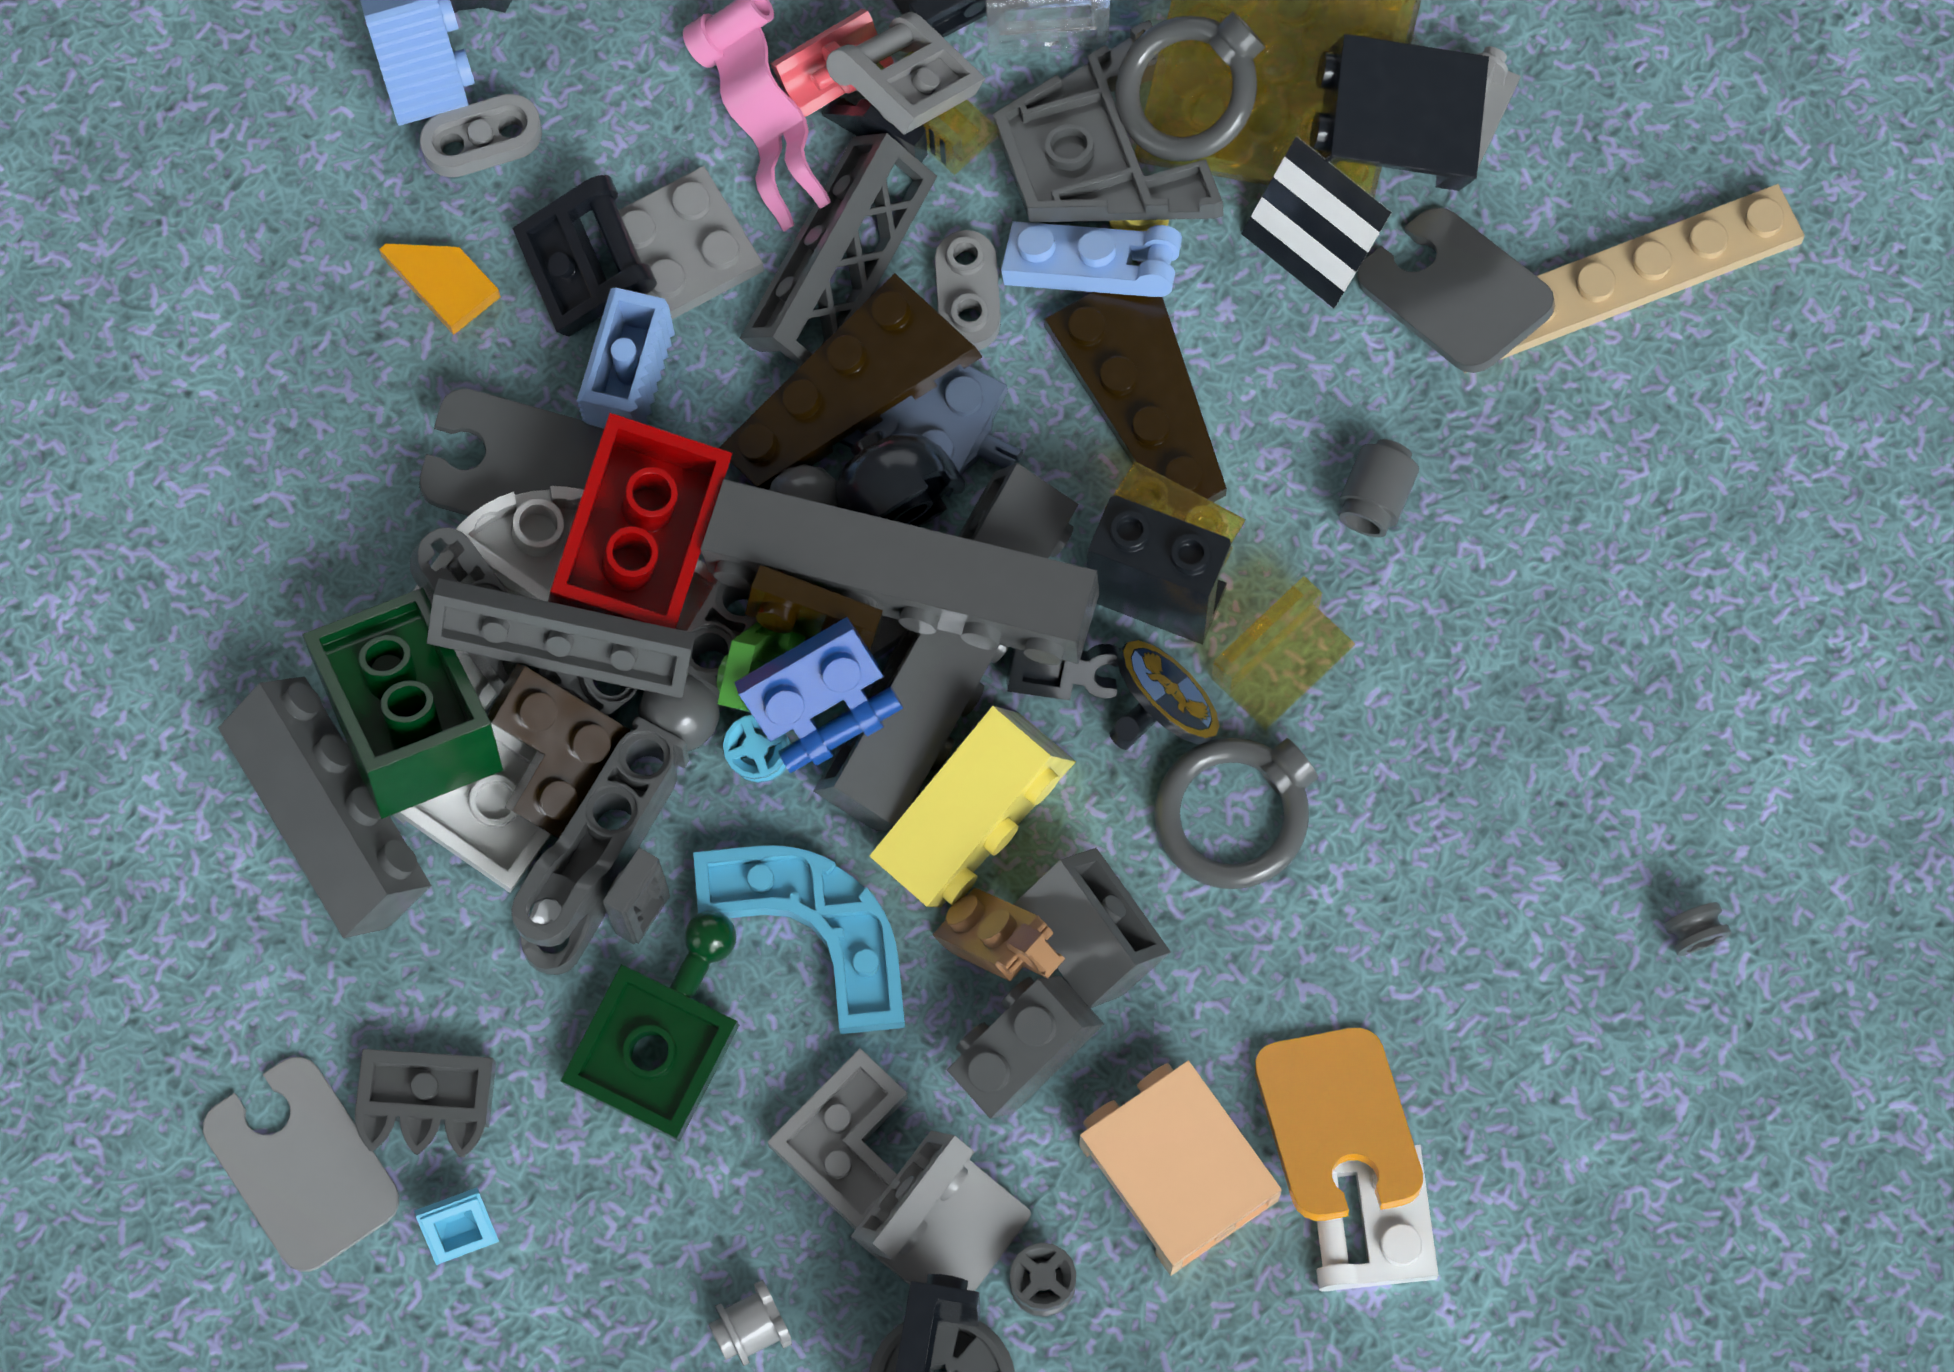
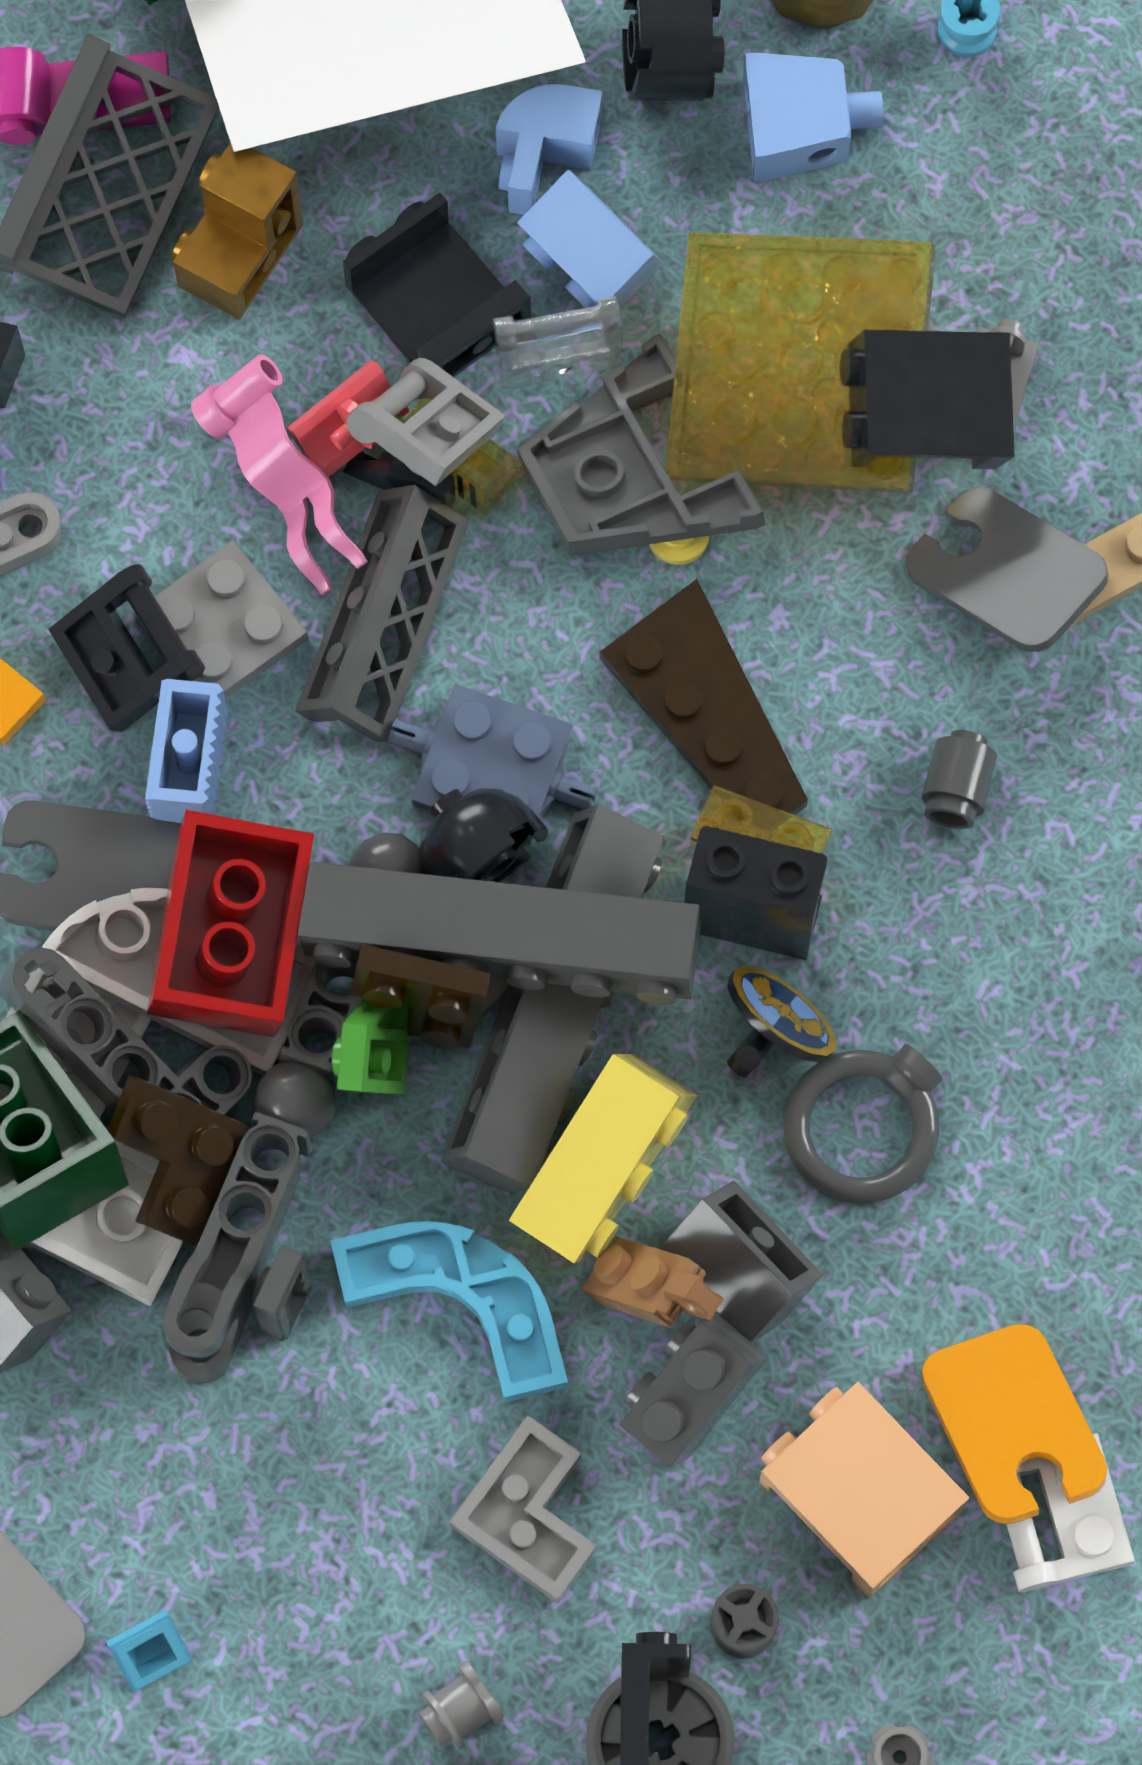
camera: 10 degrees left, 0 degrees up
(422, 1094) = (95, 1523): dark grey plate -> none
(560, 638) = (170, 1044): dark grey plate -> none
(643, 1008) = (304, 1404): dark green plate -> none
(743, 741) = (372, 1117): medium azure wheel -> none
(811, 680) = (429, 1053): plate -> none
(865, 368) = (425, 731): dark brown wing -> none
(942, 1216) = (635, 1572): light grey bracket -> none
(969, 286) = (518, 630): light grey plate -> none
(1057, 680) = (644, 1018): black plate -> none
(1091, 258) = (638, 584): light blue plate -> none
(1232, 42) = (752, 351): dark grey piece -> none
(1281, 655) = (887, 961): clear yellow panel -> none
(1316, 222) = (858, 520): sticker -> none

